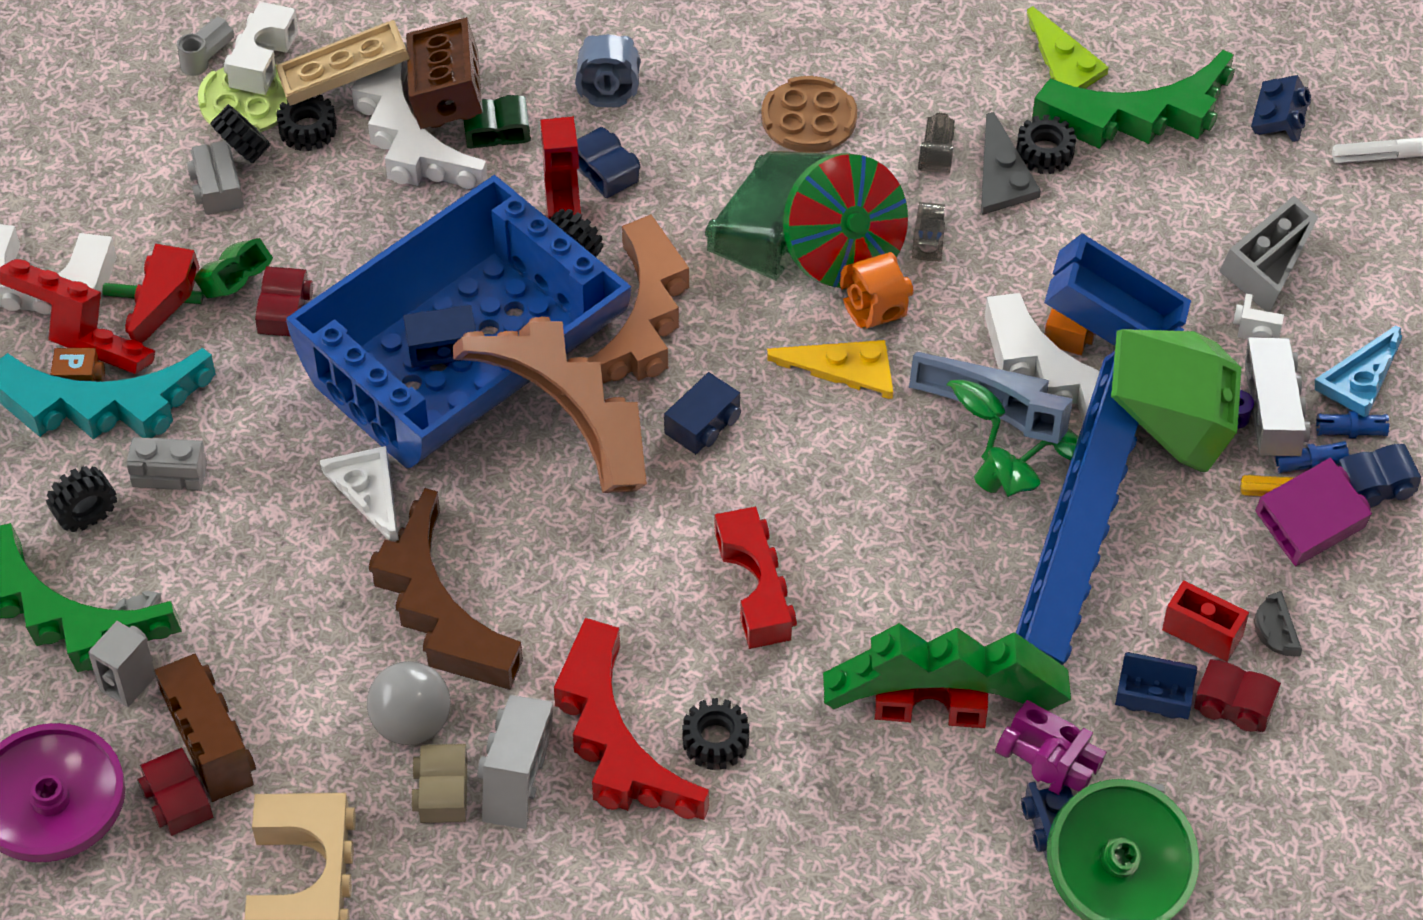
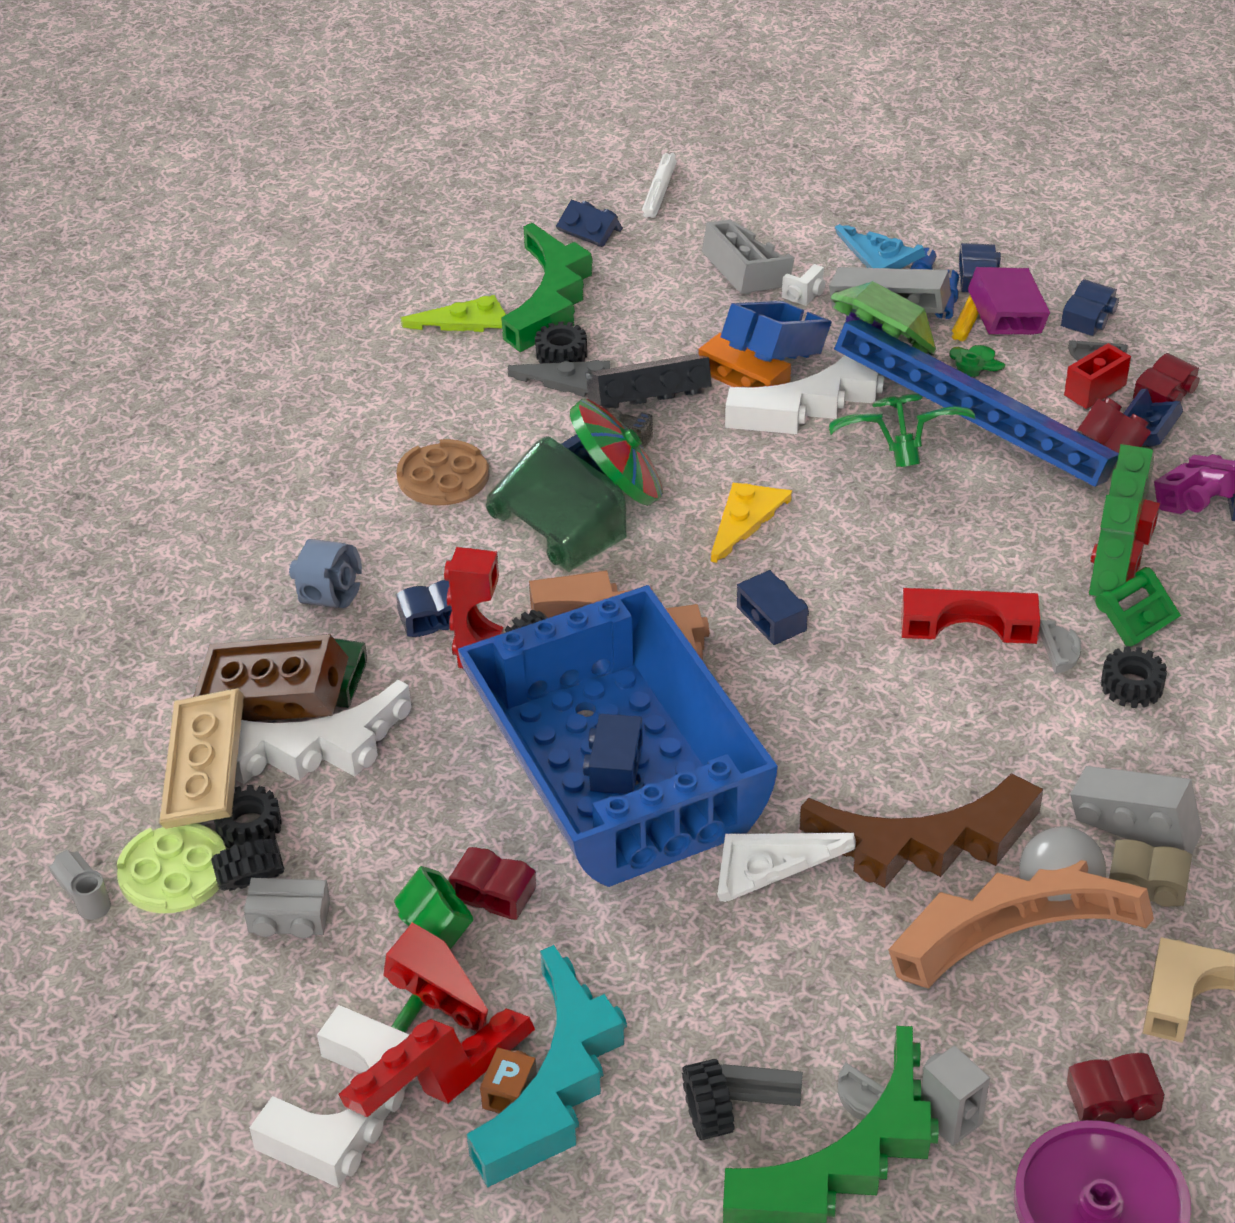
camera: 70 degrees left, 10 degrees down
(115, 536) = (763, 1084): none -> dark grey tile
(166, 463) = (678, 1019): light grey brick -> none
(206, 727) = (1048, 1038): reddish brown wedge -> none
(253, 61) = (109, 818): white arch -> none
(330, 644) = (957, 926): none -> nougat arch
(540, 356) = (753, 652): nougat arch -> none
(601, 735) = (1067, 746): red arch -> none
(748, 668) = (1061, 645): none -> light grey tile
(808, 728) = (1143, 617): none -> green plate
(875, 290) = (687, 466): orange brick -> none
(937, 148) = (536, 406): clear smoke piece -> none
(1002, 224) = (648, 380): none -> black brick
(1022, 396) = (879, 394): sand blue arch -> none
(1099, 648) = (1111, 427): none -> dark red brick
(1202, 508) = (975, 359): none -> green plate
(1353, 598) = (1089, 307): none -> dark blue brick

